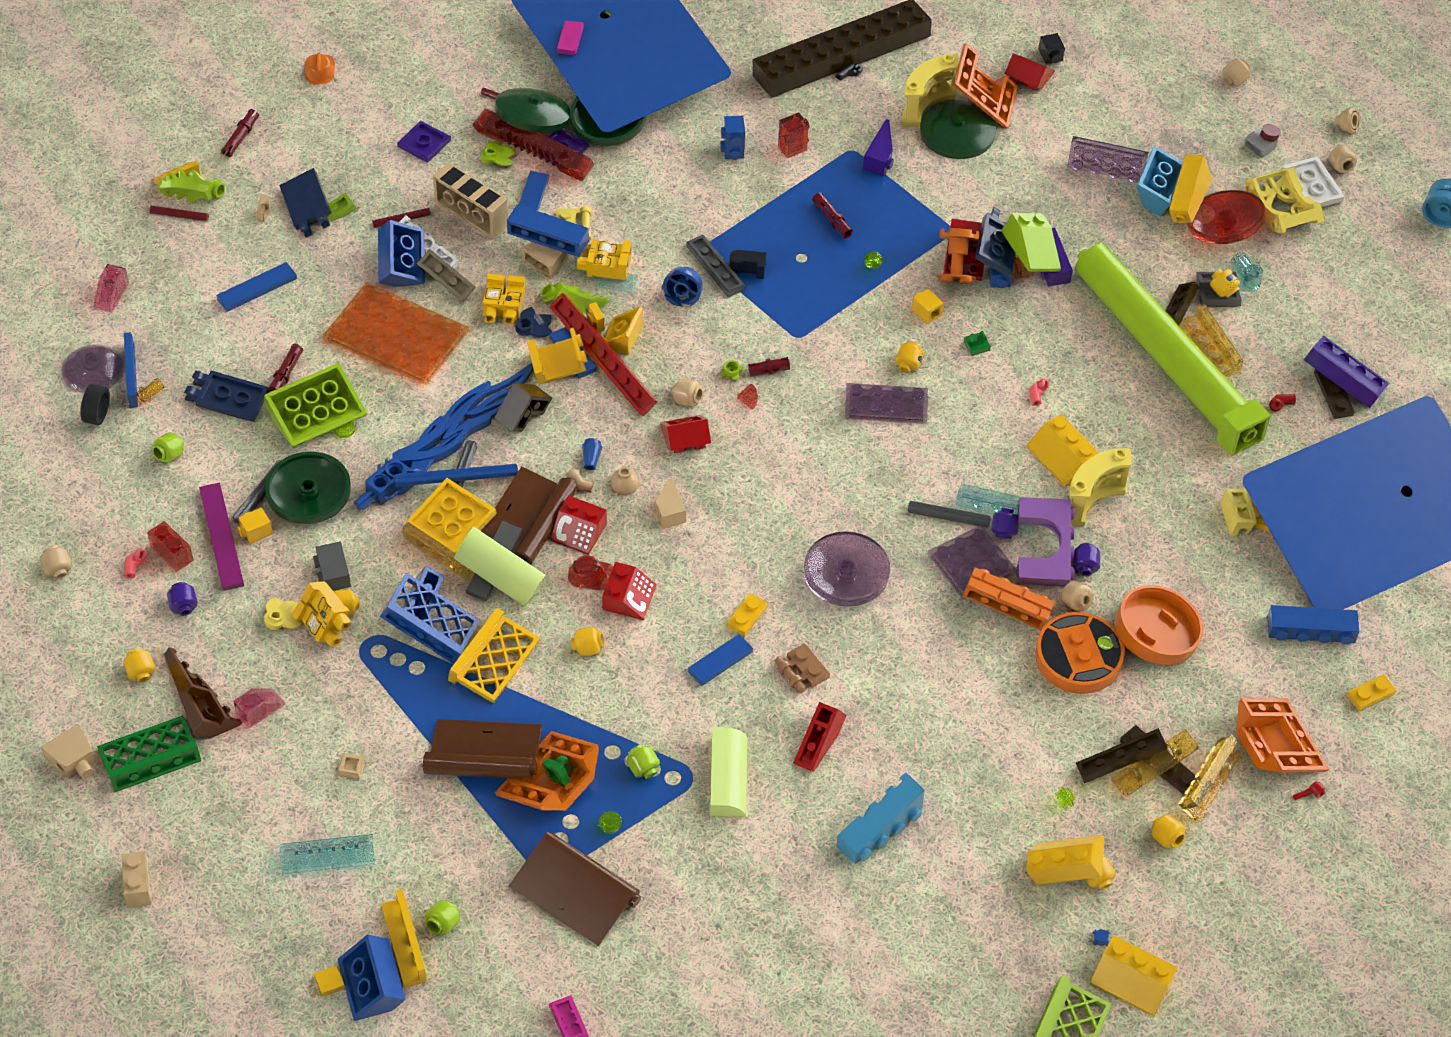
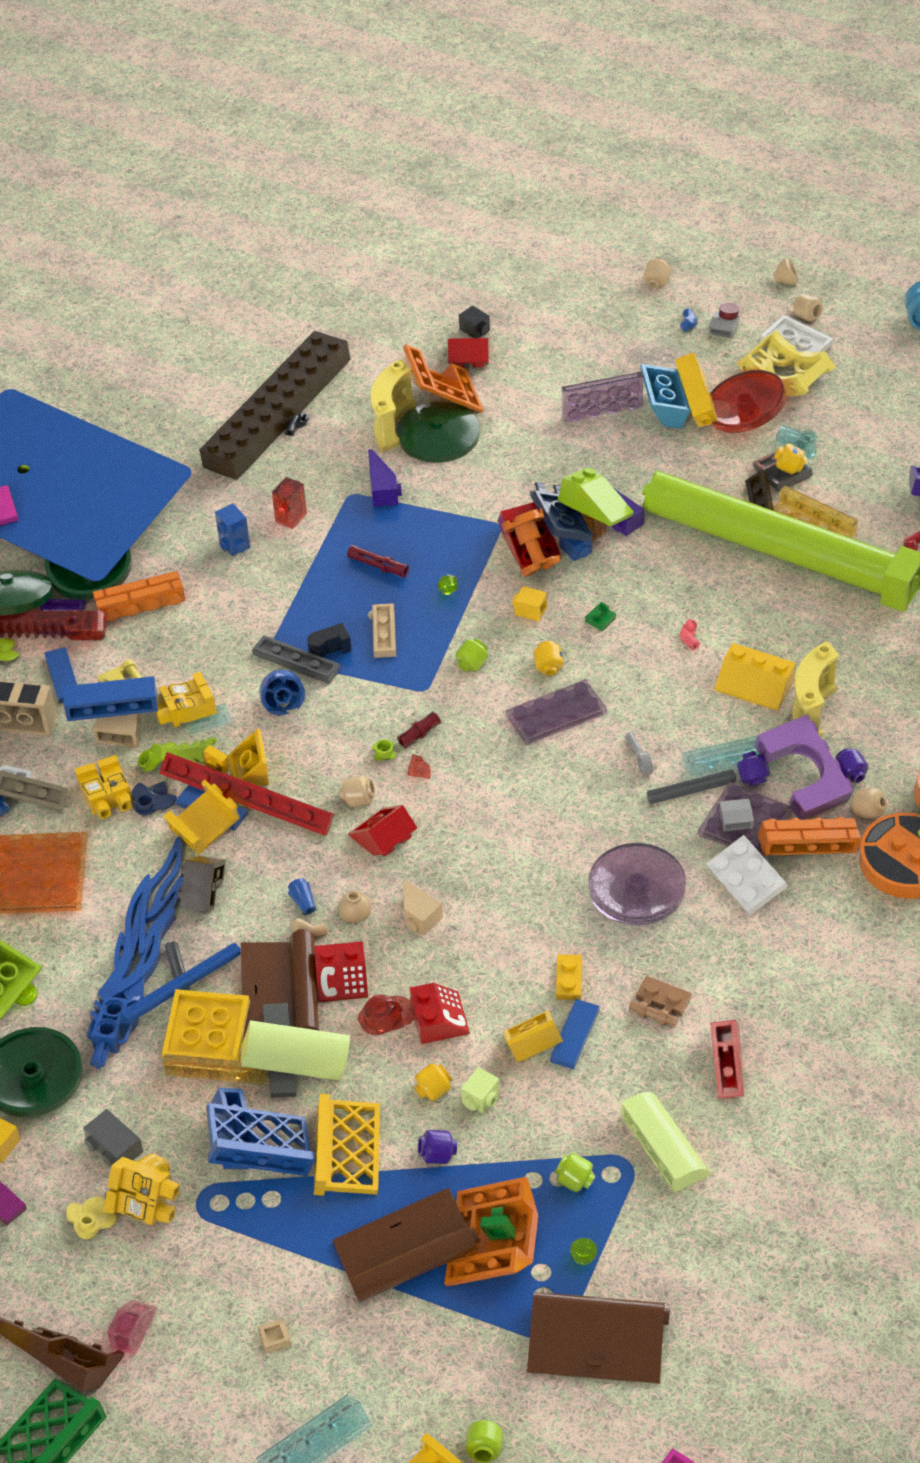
camera: 25 degrees left, 5 degrees down
(557, 690) = (436, 1146): none -> dark purple head
(617, 666) = (480, 1091): none -> yellowish green brick
(630, 159) = (140, 596): none -> orange brick
(684, 645) = (532, 1036): none -> yellow slope
(798, 274) = (384, 630): none -> tan tile
(851, 326) = (471, 655): none -> lime head
(882, 820) = (848, 1106): dark azure wedge -> none
(925, 471) = (643, 758): none -> light grey piece
(939, 604) = (746, 875): none -> white plate
(962, 553) = (736, 815): none -> light grey piece
(1235, 126) = (690, 320): none -> blue arm

